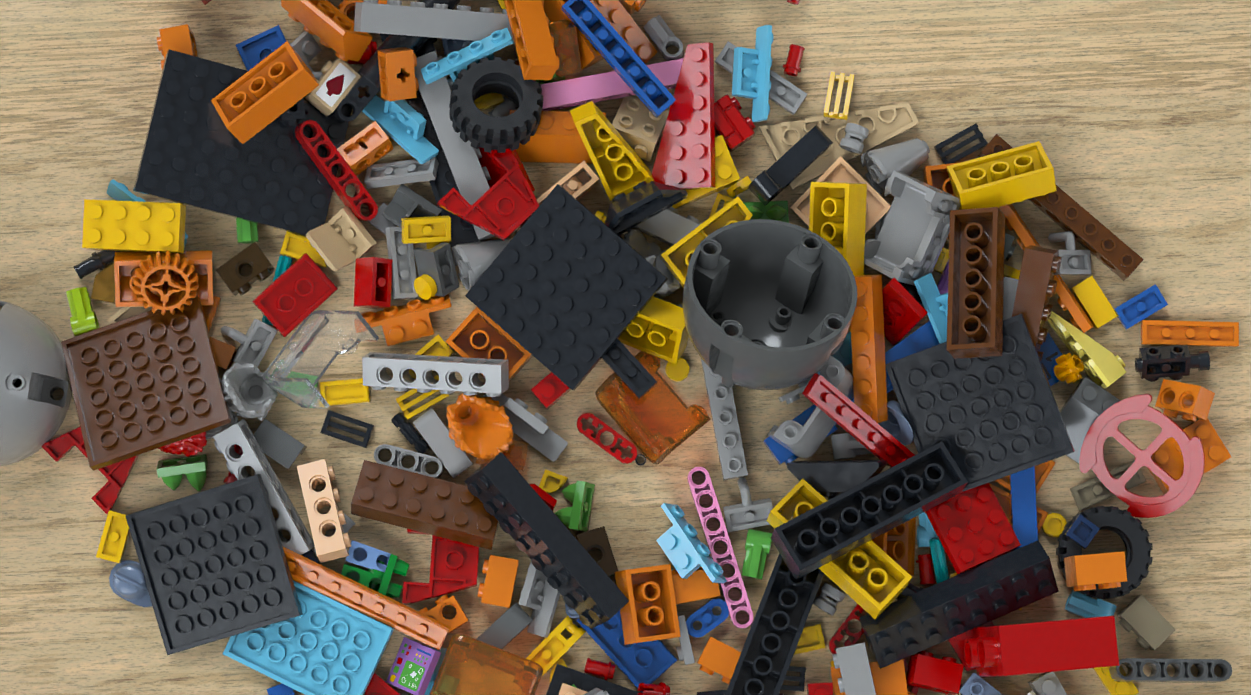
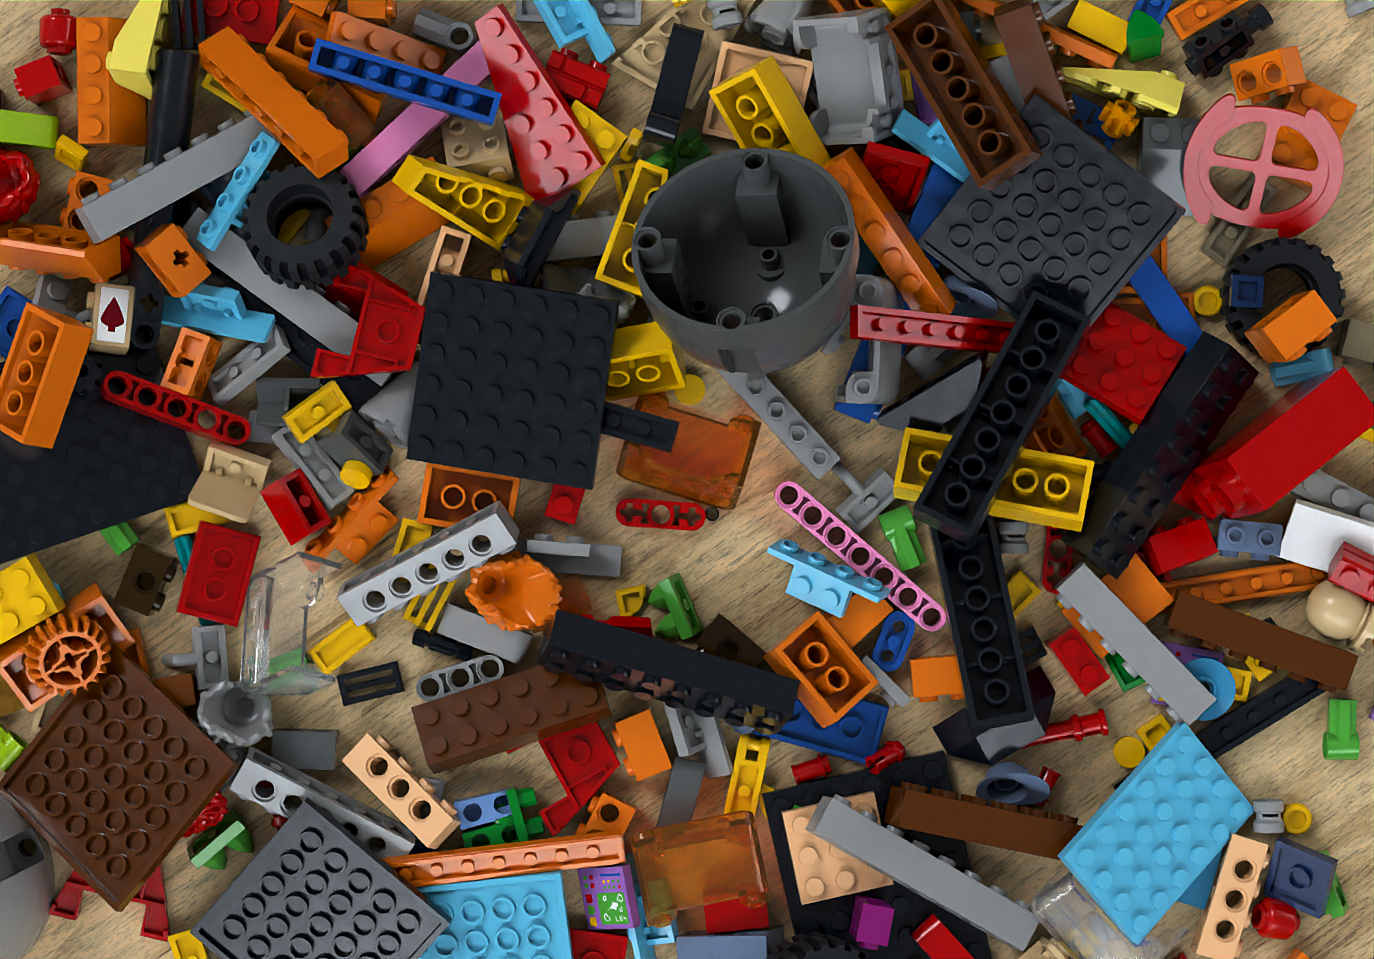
camera: 30 degrees left, 5 degrees up
(1117, 325) = (1143, 37): none -> green tile

